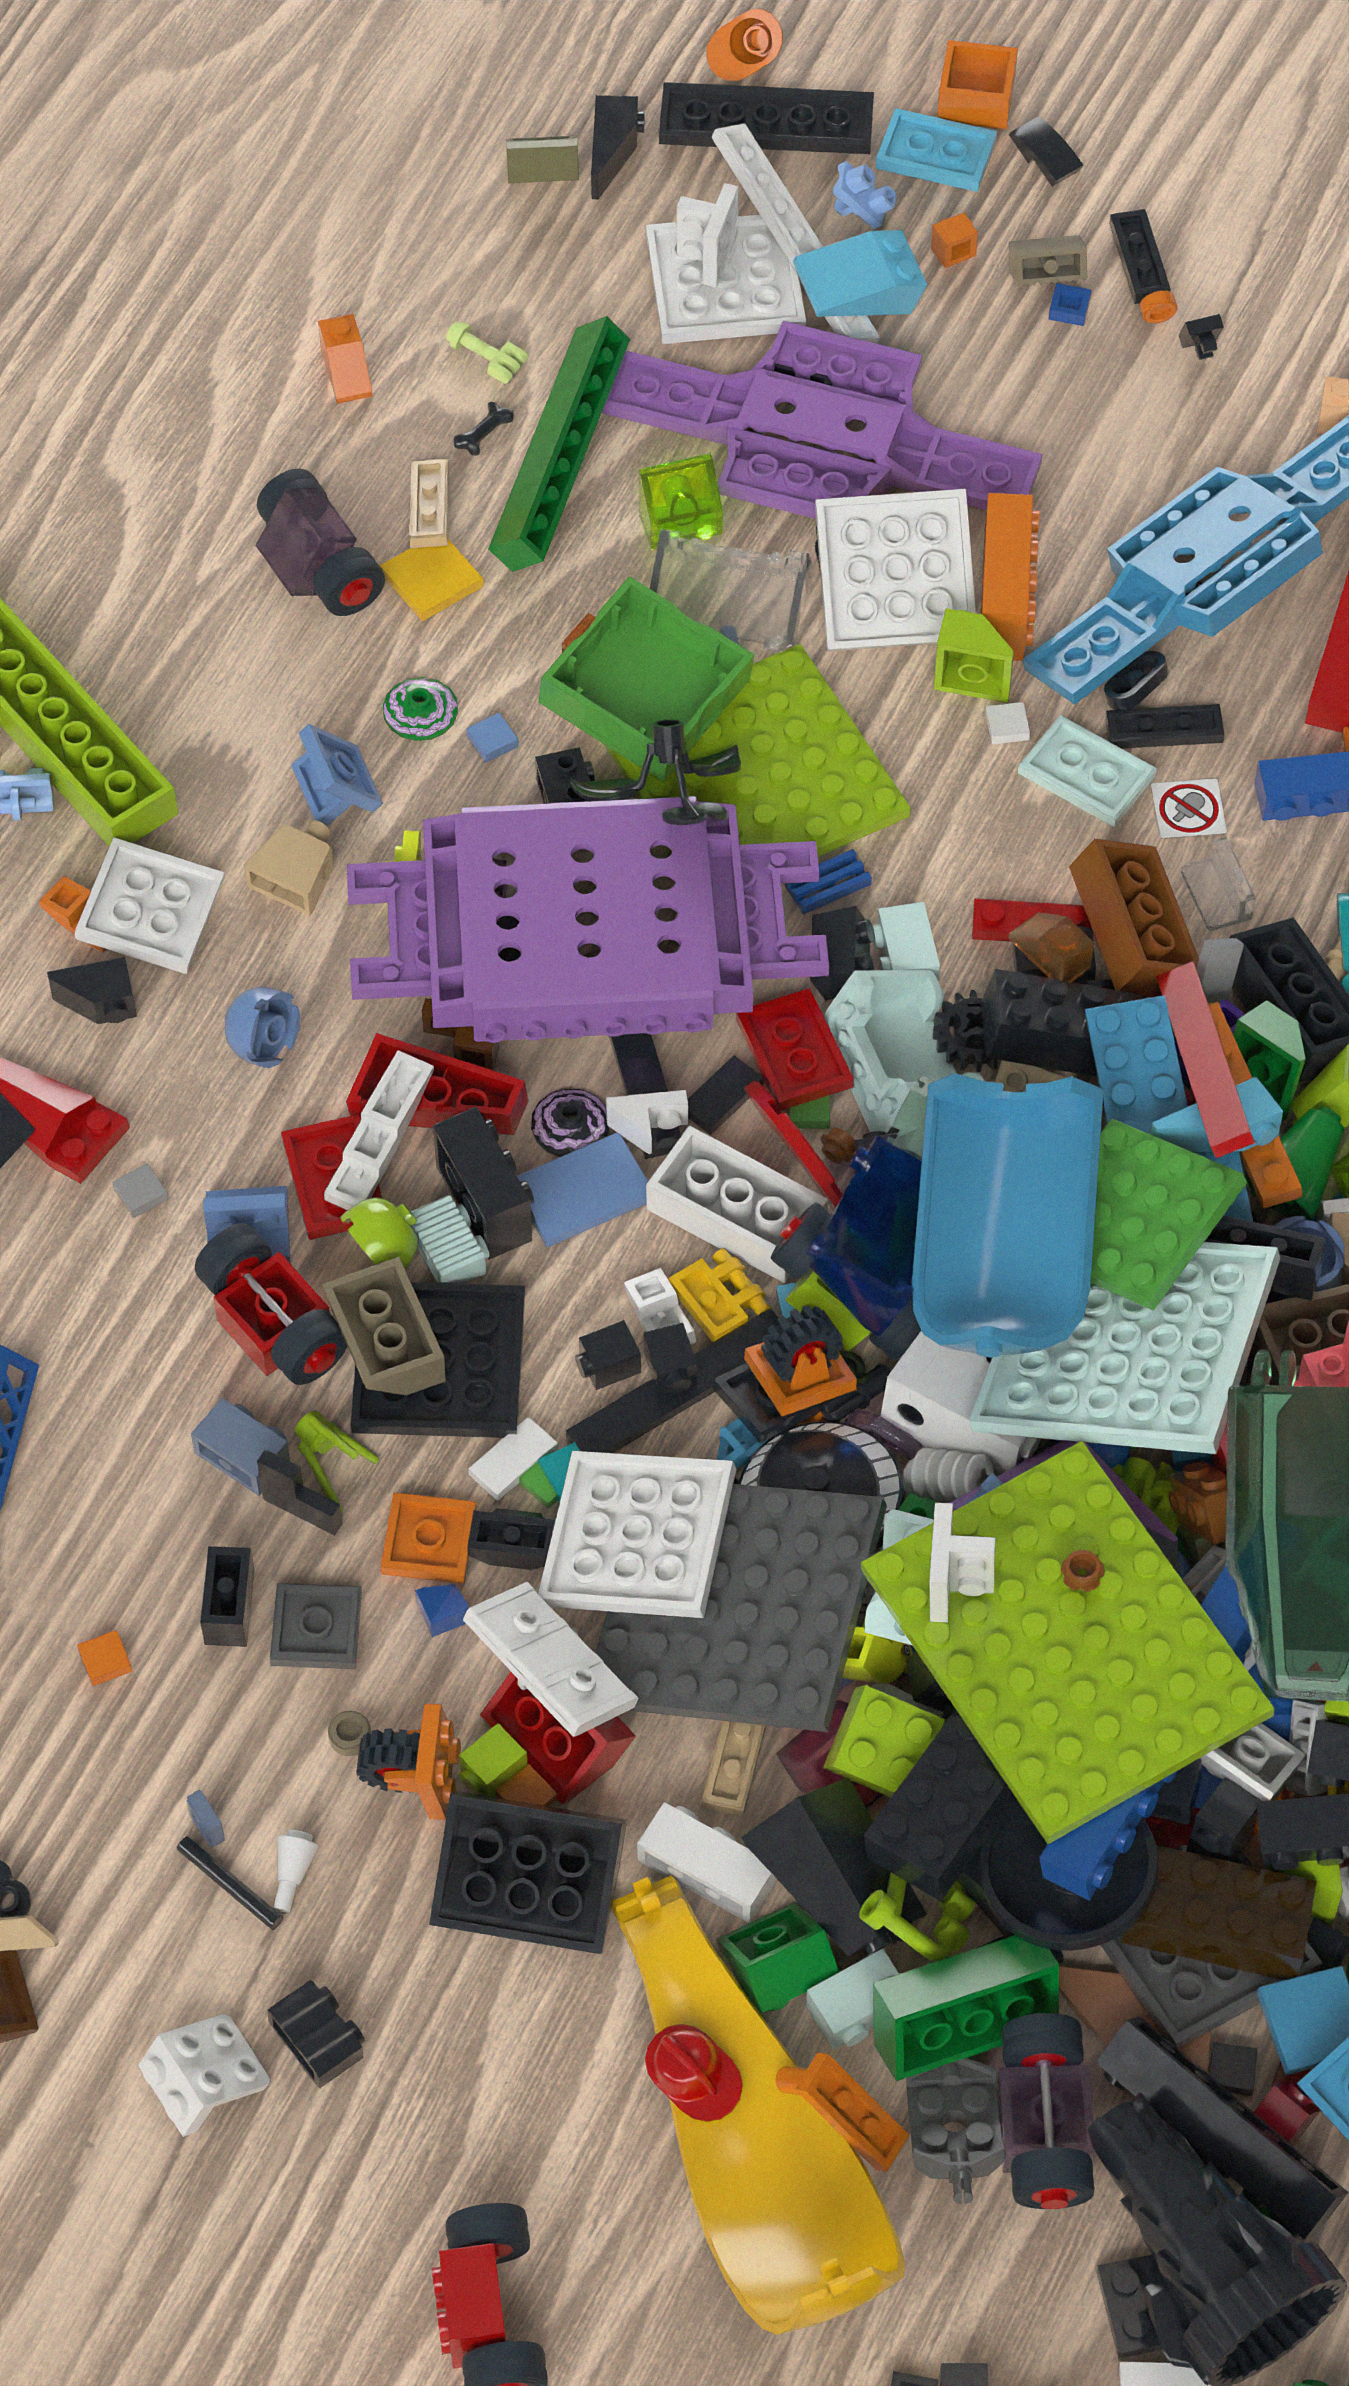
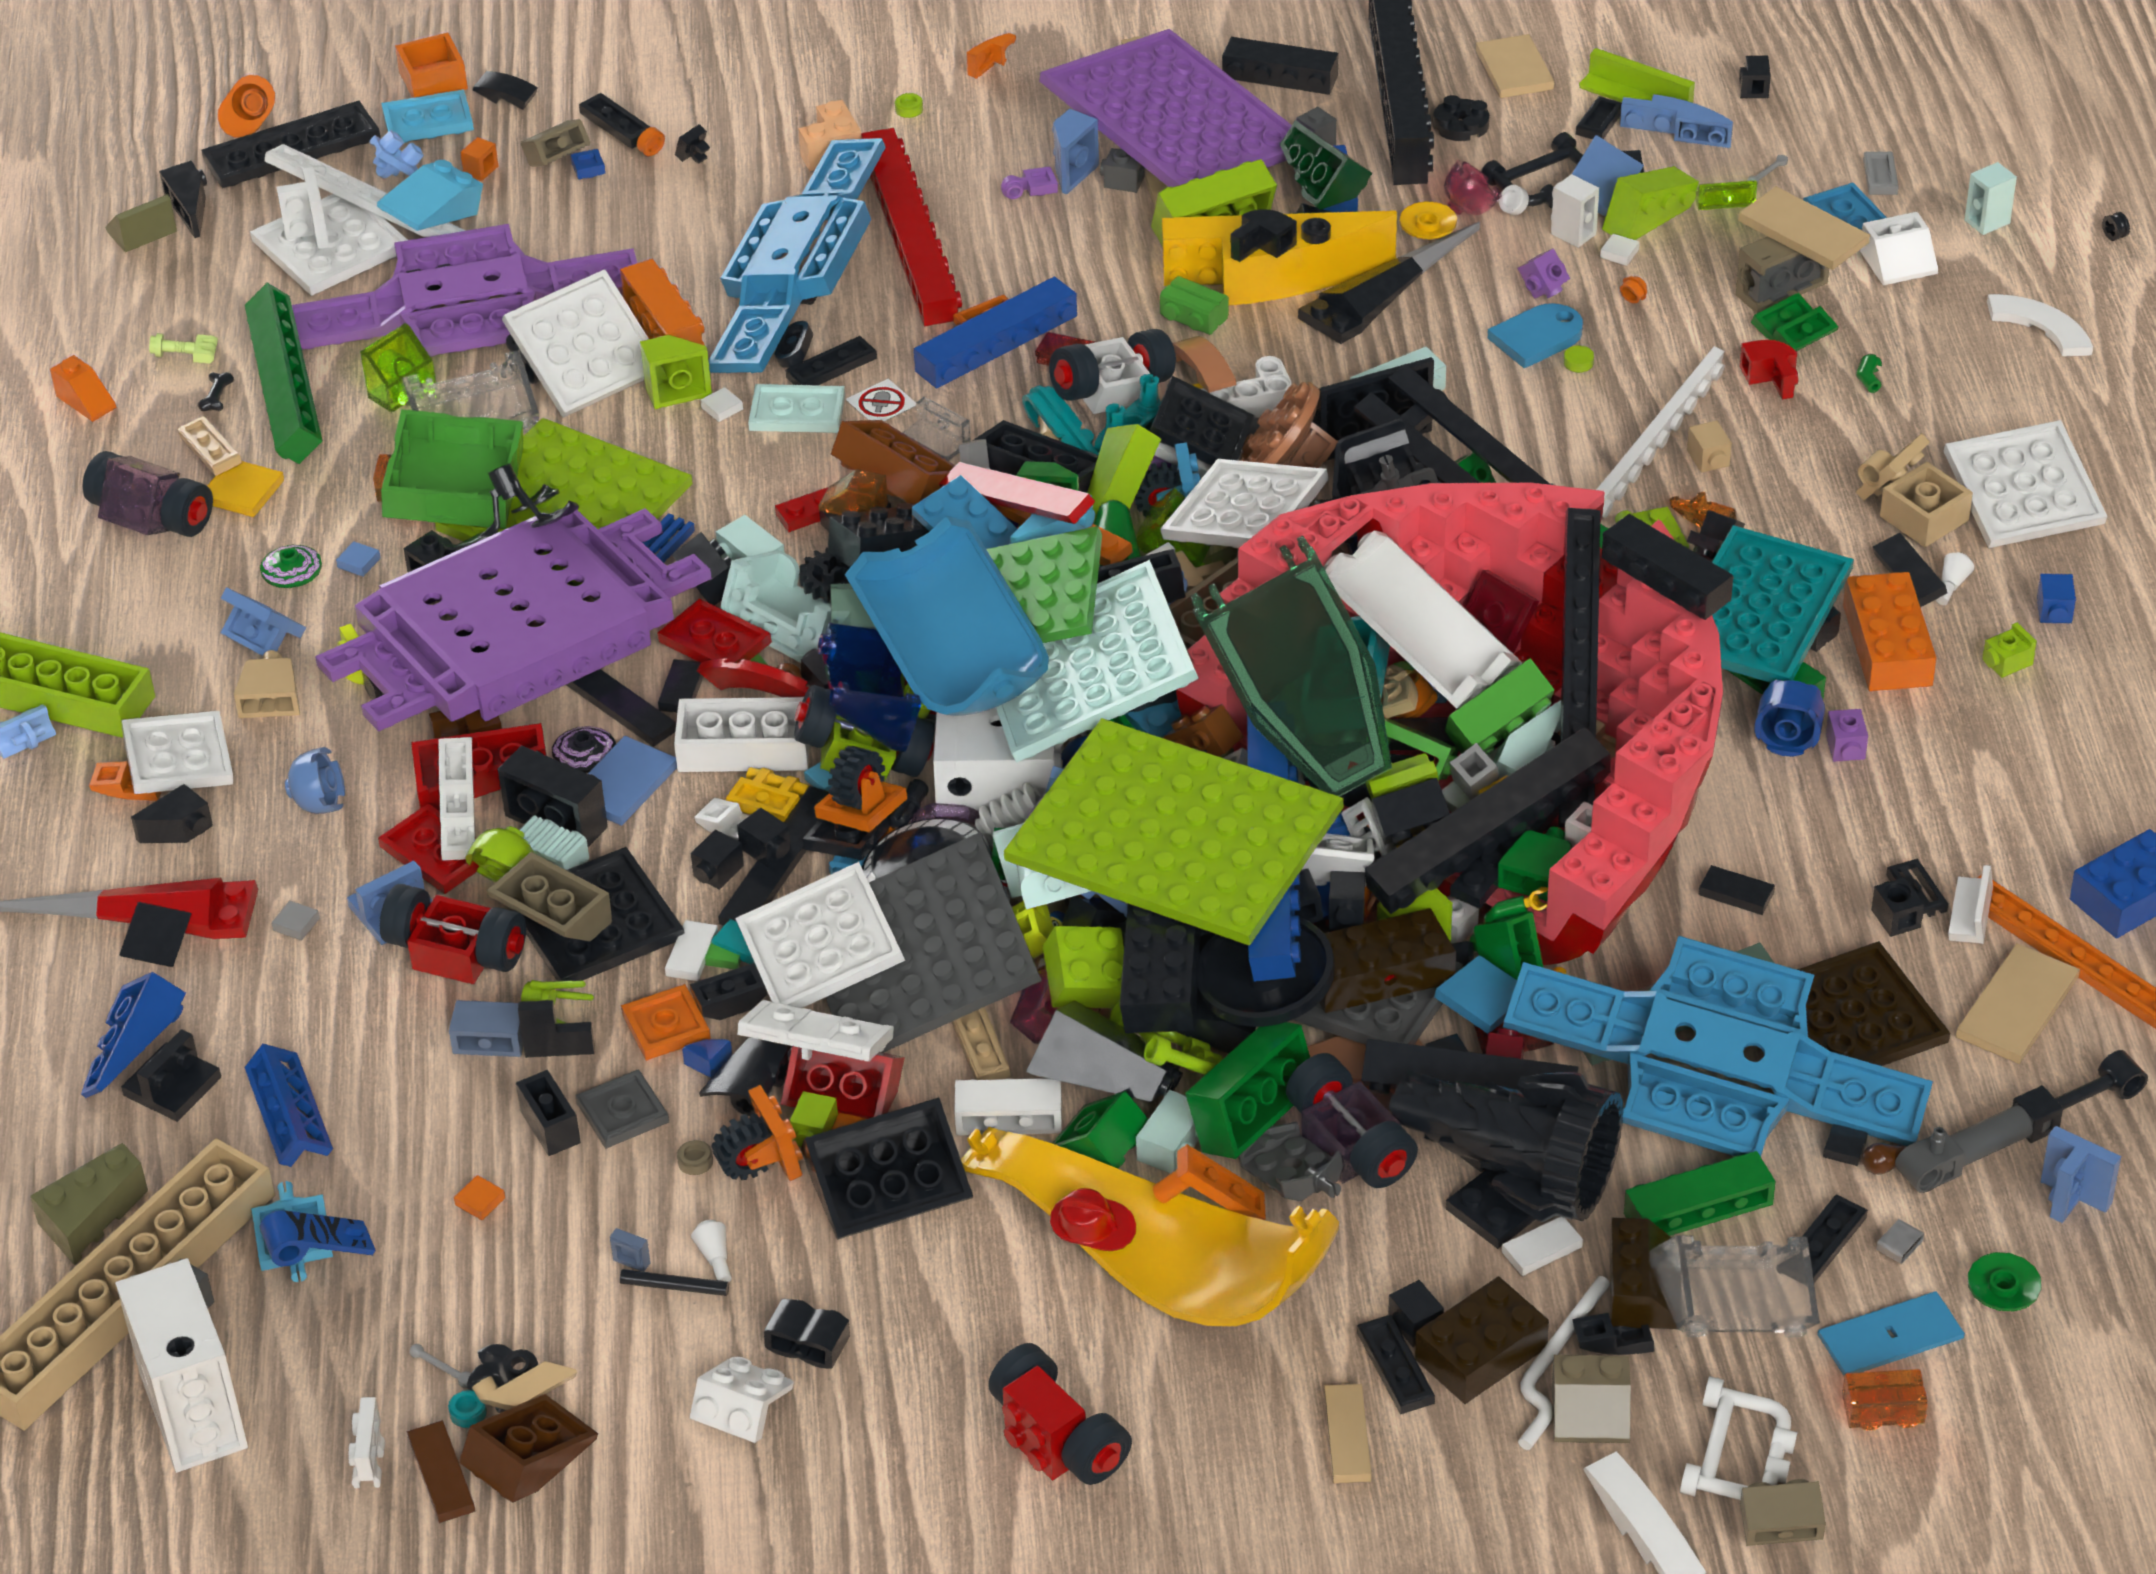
camera: 30 degrees left, 15 degrees down
(457, 1667) = (751, 1065): none -> black panel
(637, 1114) = (639, 713): white slope -> none
(957, 1563) = (1076, 804): white bracket -> none
(1085, 1561) = (1160, 778): dark orange plate -> none

